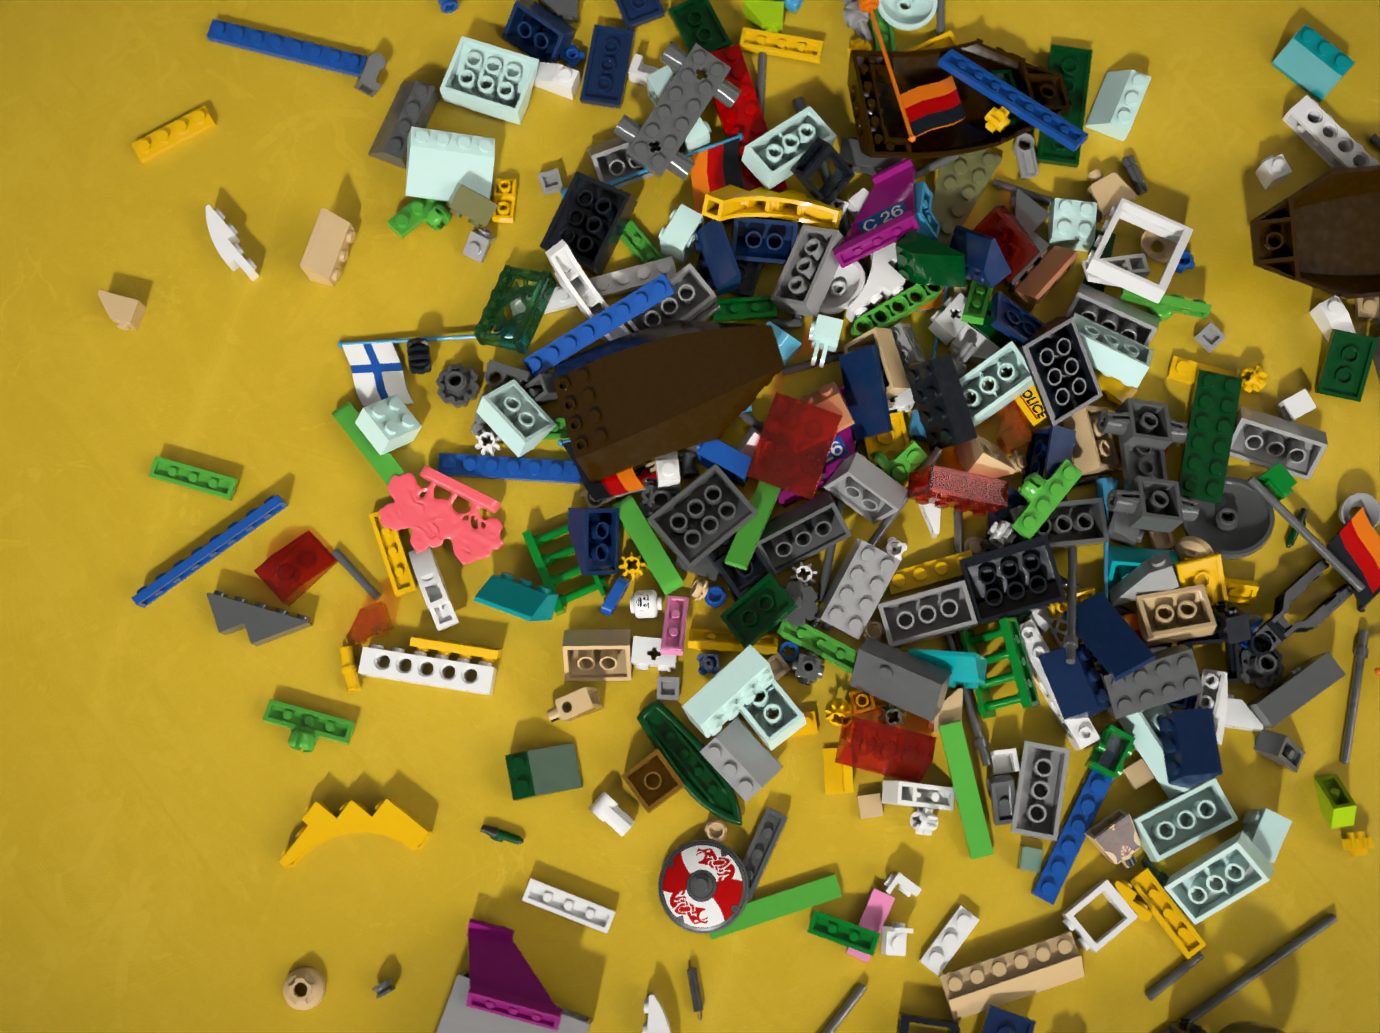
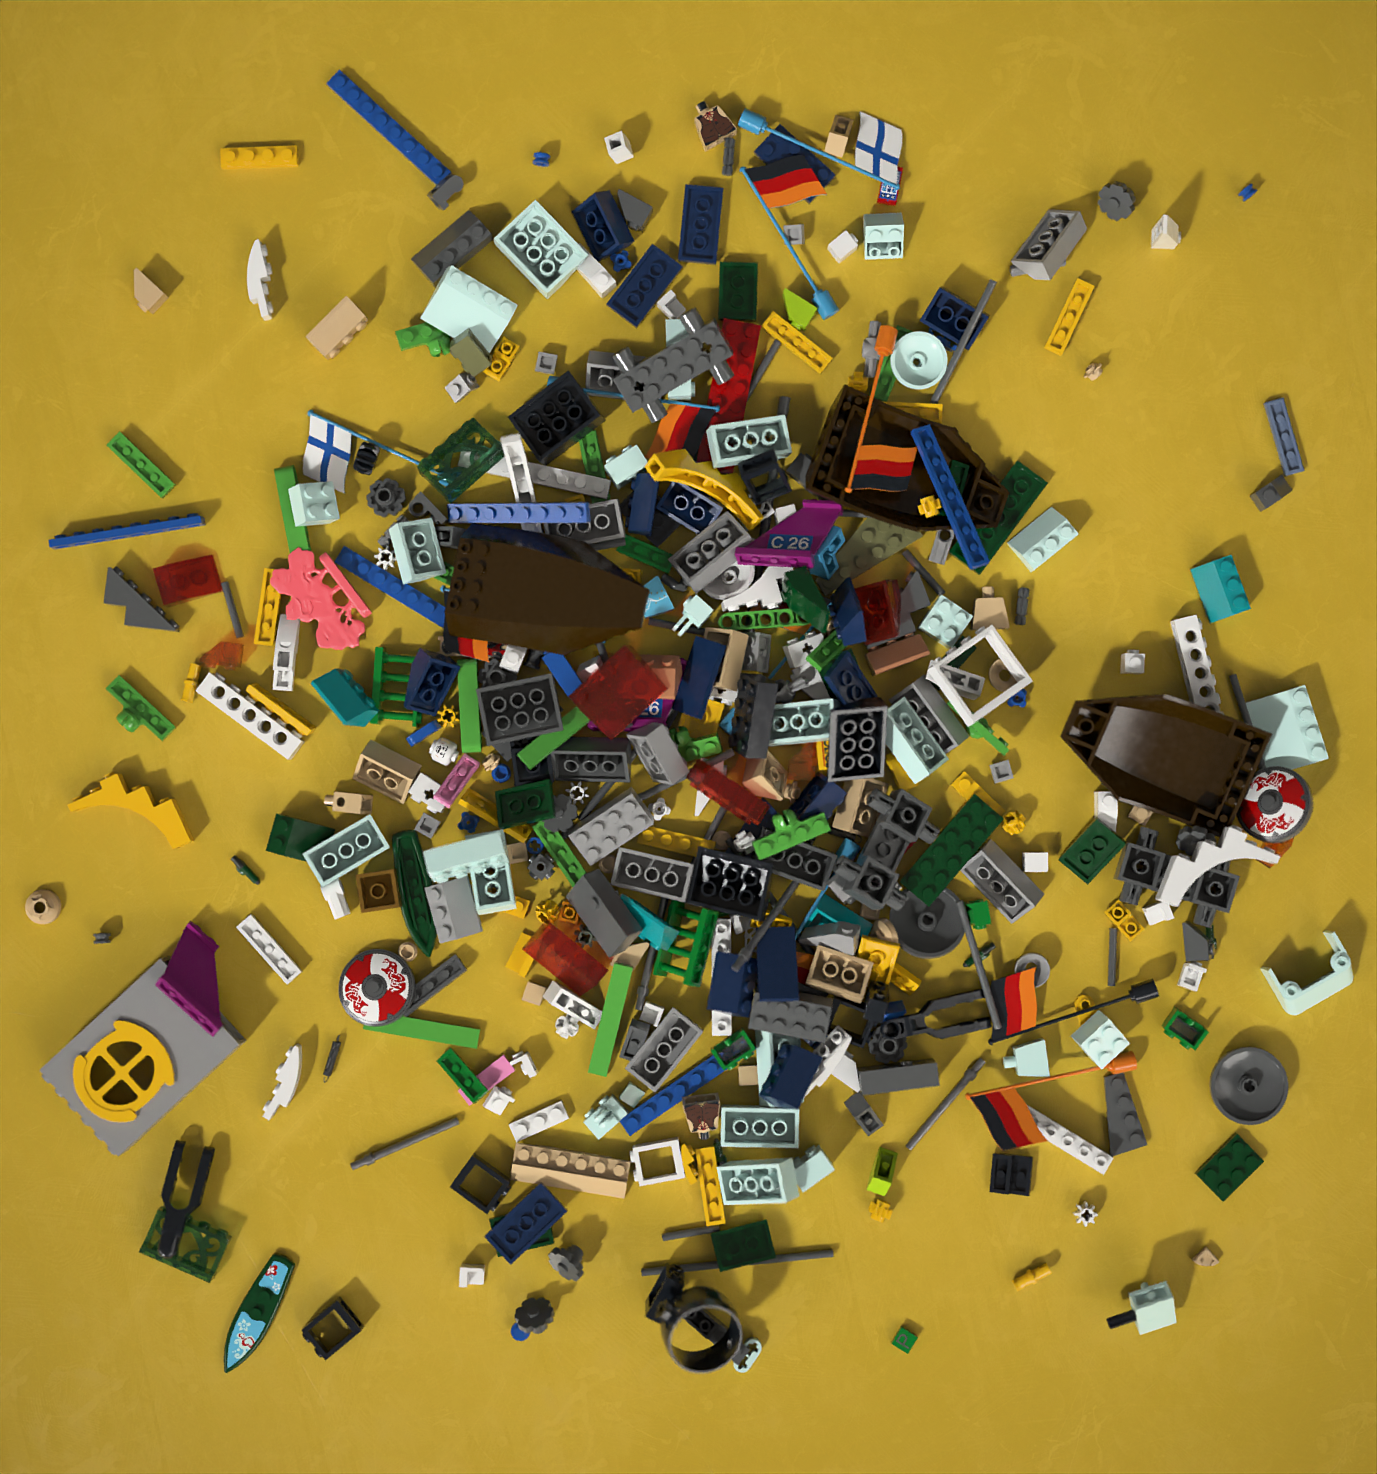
camera: 20 degrees right, 10 degrees up
(597, 756) = (346, 850): none -> light aqua brick
(1016, 896) = (605, 1116): none -> light aqua brick
(1239, 959) = (743, 1245): none -> dark green plate

